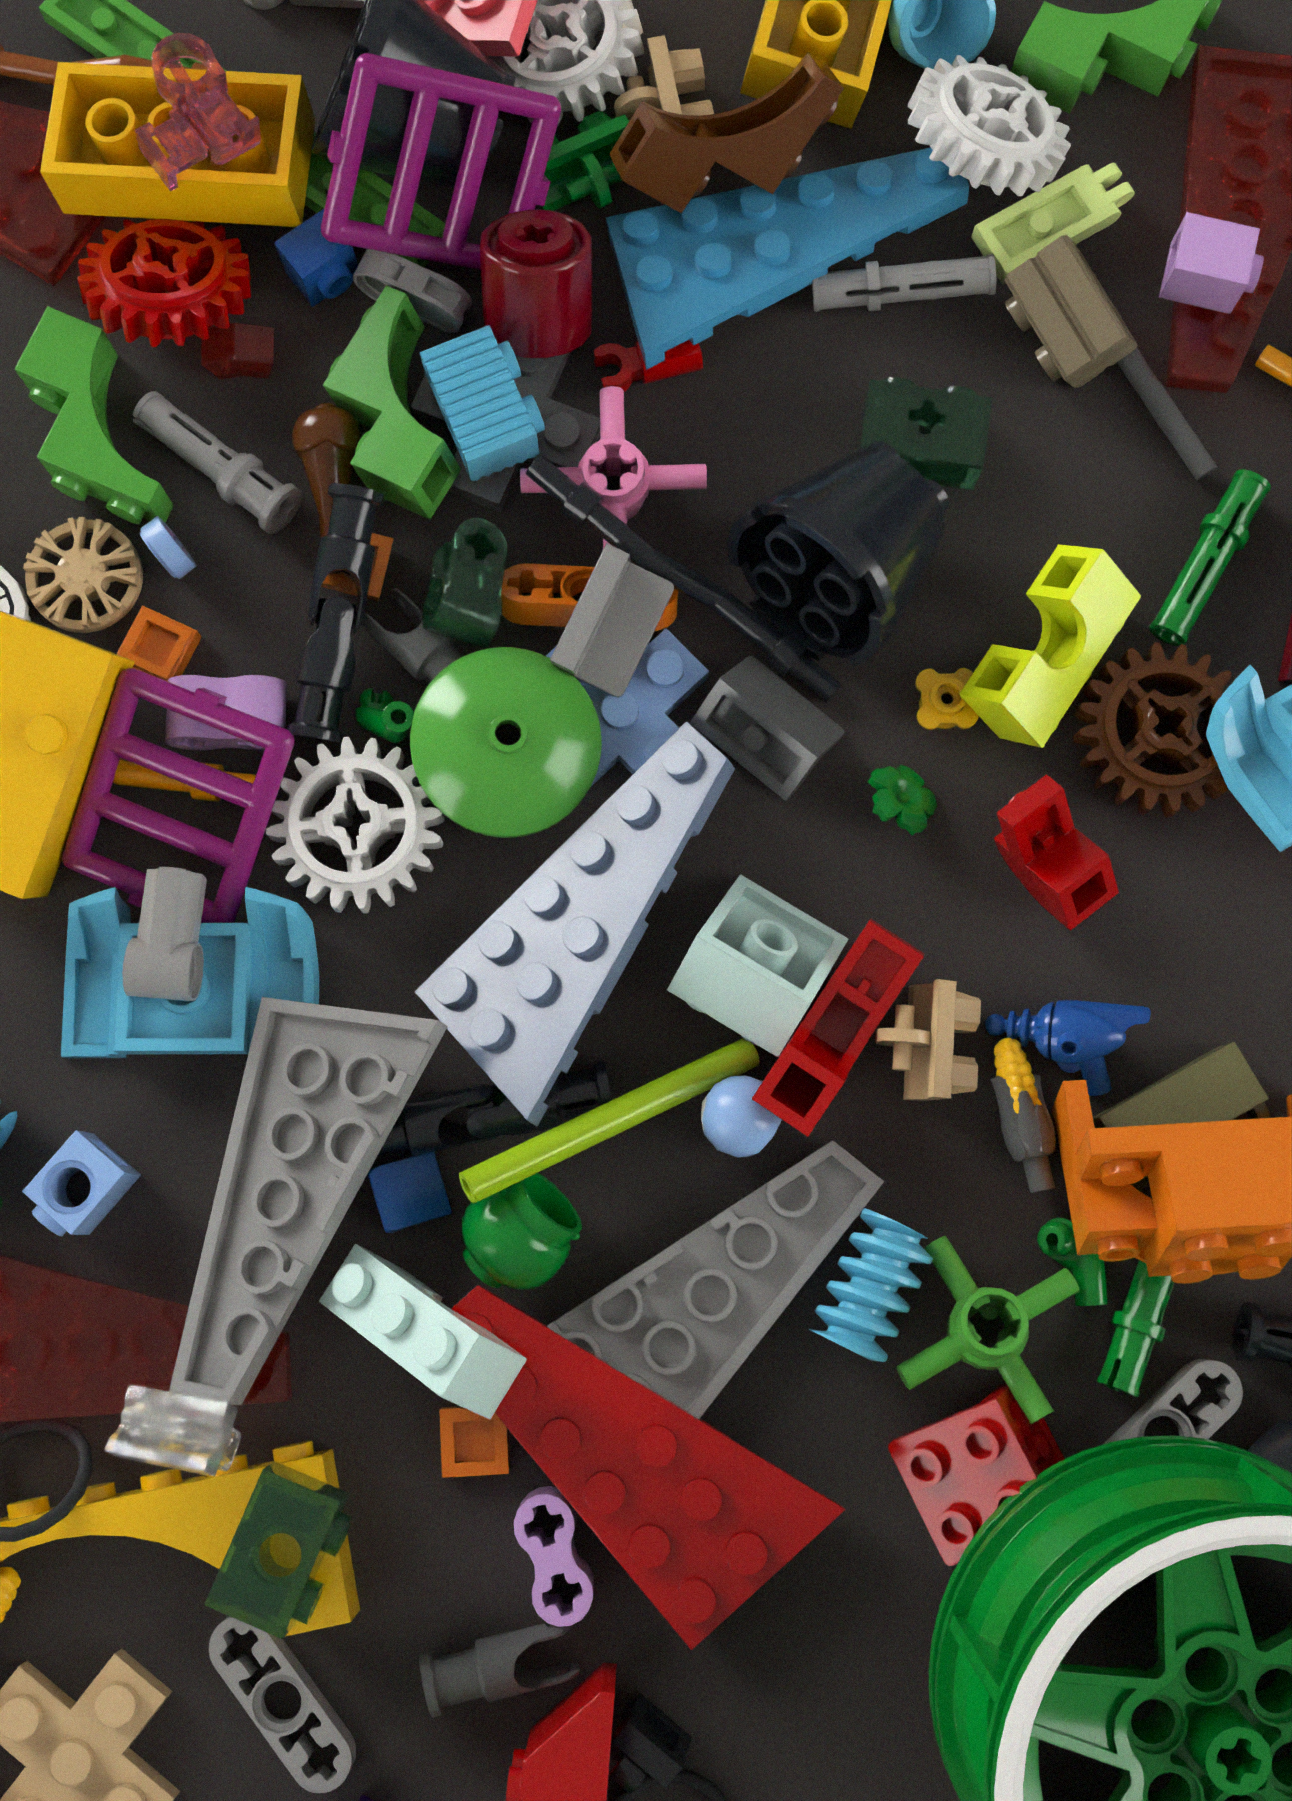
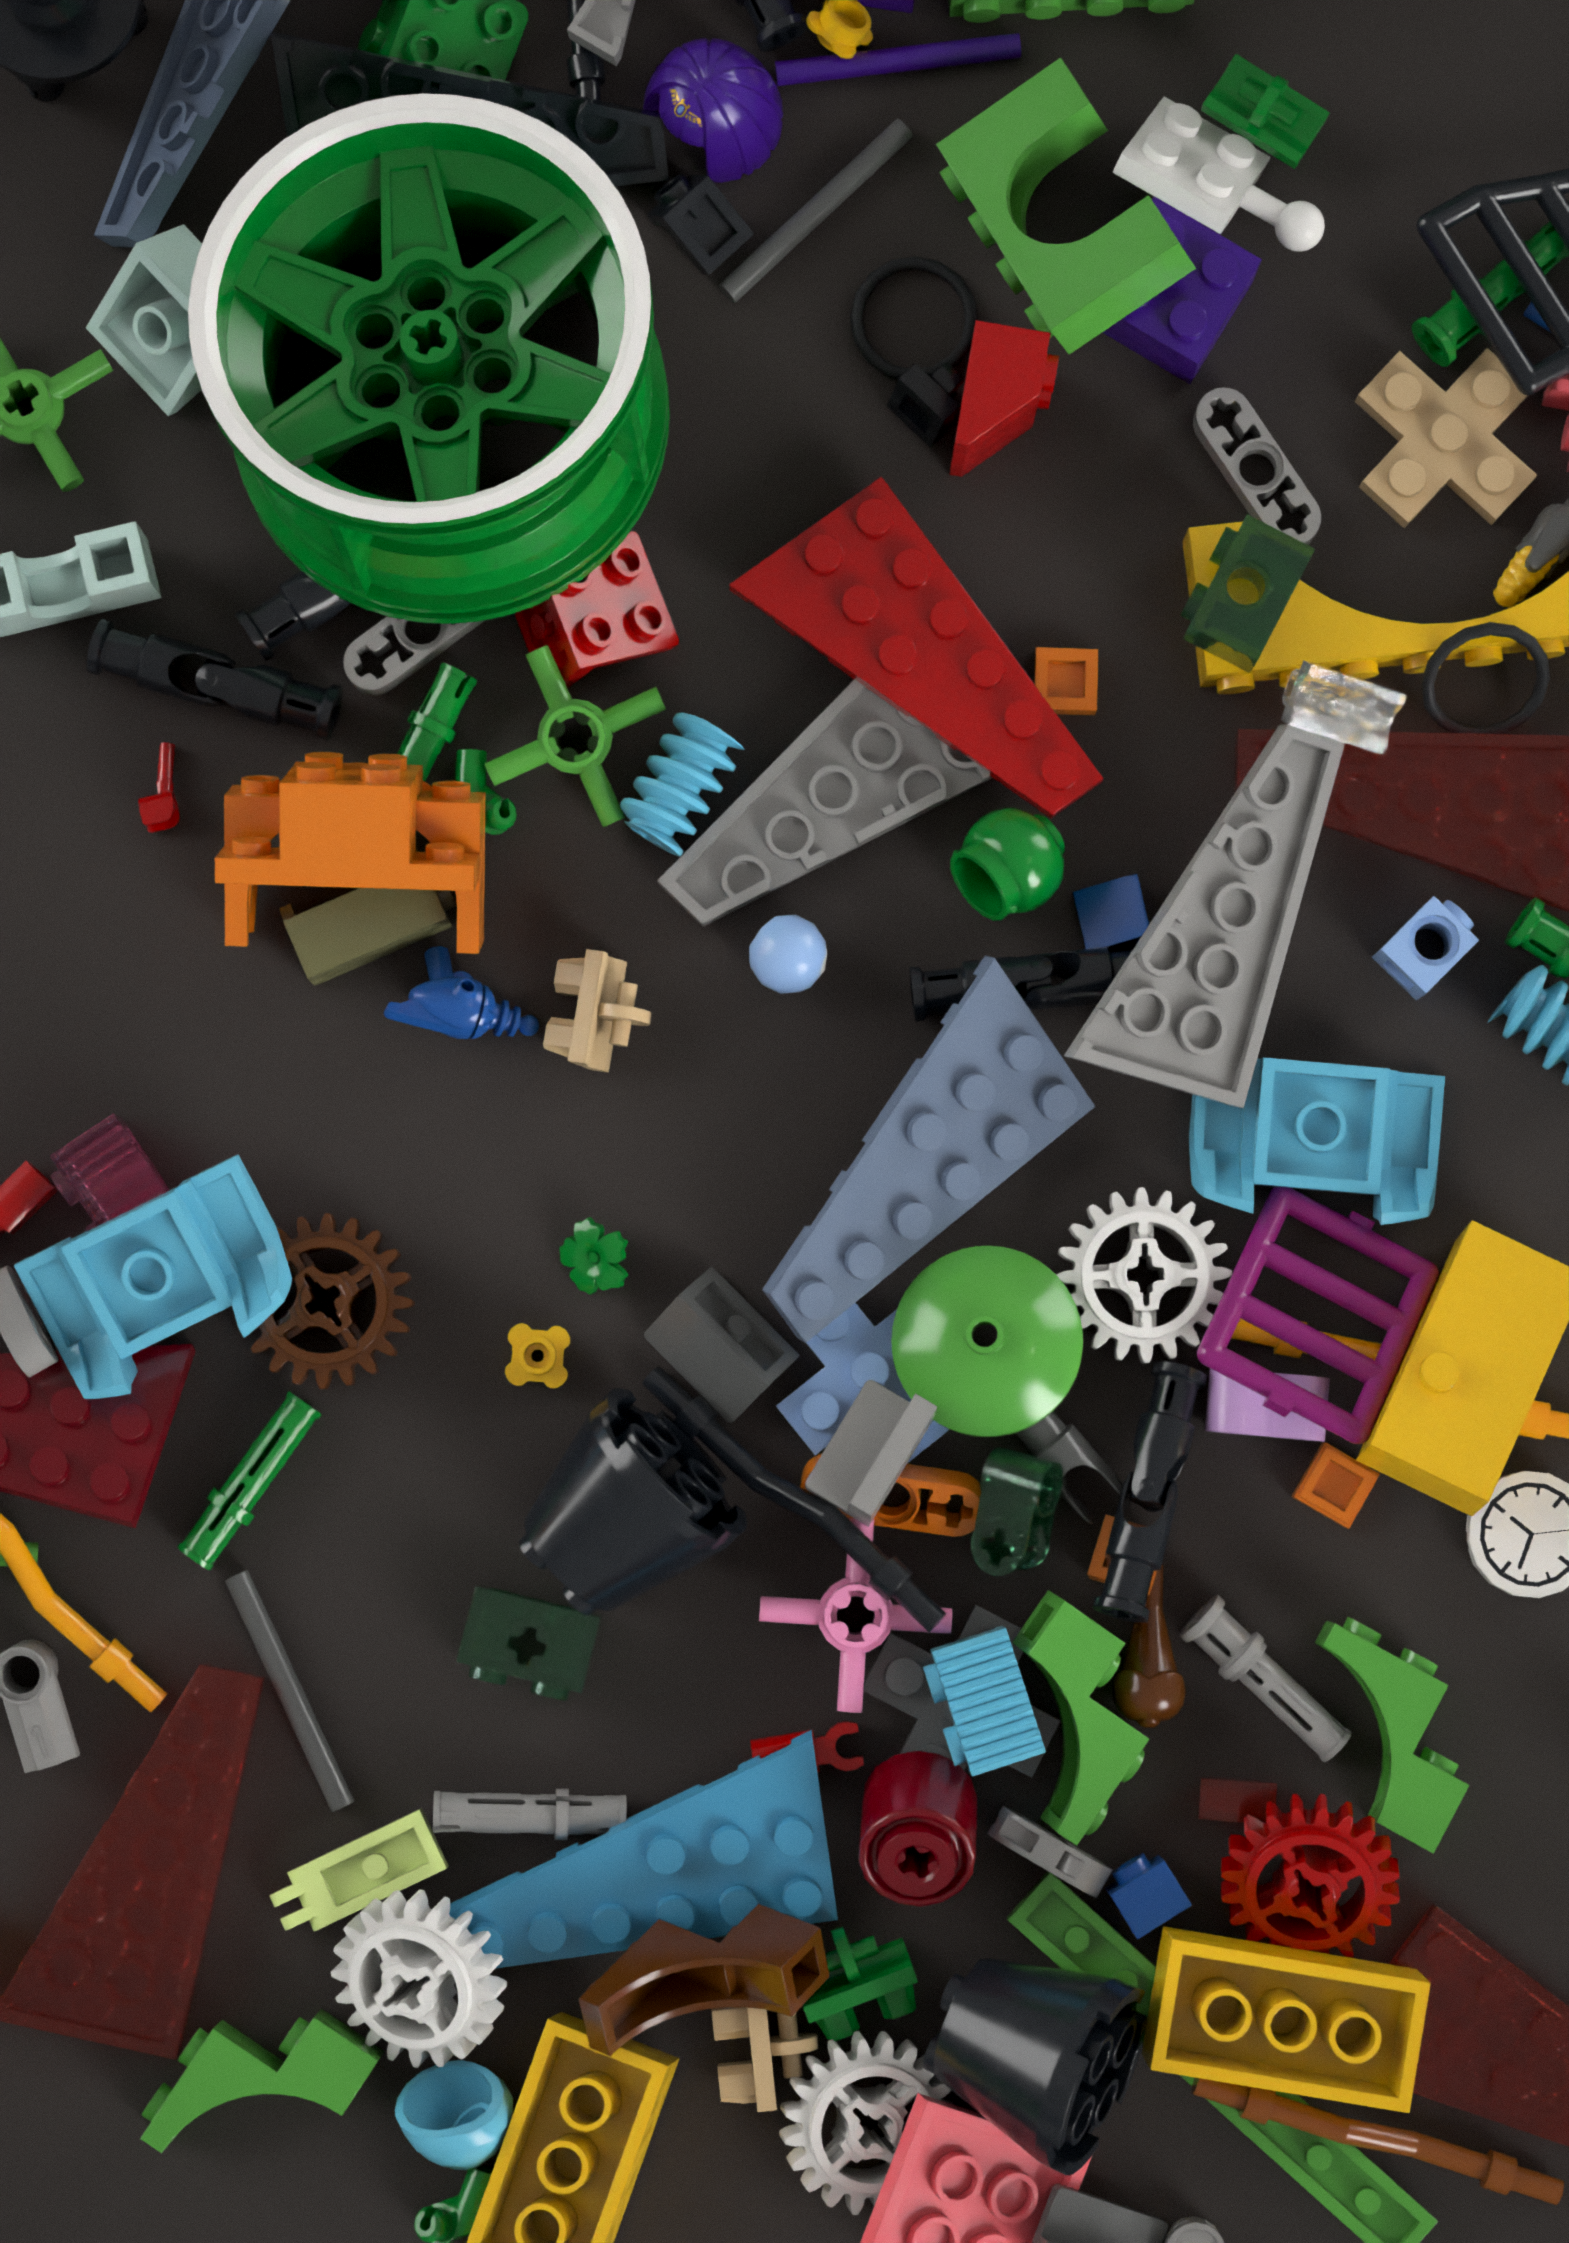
camera: 175 degrees left, 5 degrees up
(83, 575) = (1409, 1570): tan wheel -> none
(166, 954) = (1333, 1152): light grey piece -> none
(167, 548) = (1320, 1585): light blue tile -> none
(201, 116) = (1251, 2011): clear pink piece -> none
(383, 716) = (1116, 1386): green arm -> none
(421, 1333) = (1092, 755): light aqua arch -> none
(428, 85) = (1019, 2013): magenta bar -> none
(490, 1669) = (1062, 479): dark grey piece -> none
(553, 1557) = (999, 569): lavender axle -> none
(606, 1120) = (913, 958): lime piece -> none
(757, 965) = (755, 1101): light aqua slope -> none
(838, 1027) = (690, 1024): red arch -> none
(1024, 1114) = (513, 934): dark grey piece -> none
(1053, 857) = (452, 1179): red brick -> none
(1068, 313) = (361, 1756): dark tan brick -> none
(1081, 611) = (392, 1423): neon yellow arch -> none
(1211, 263) = (208, 1787): lavender brick -> none

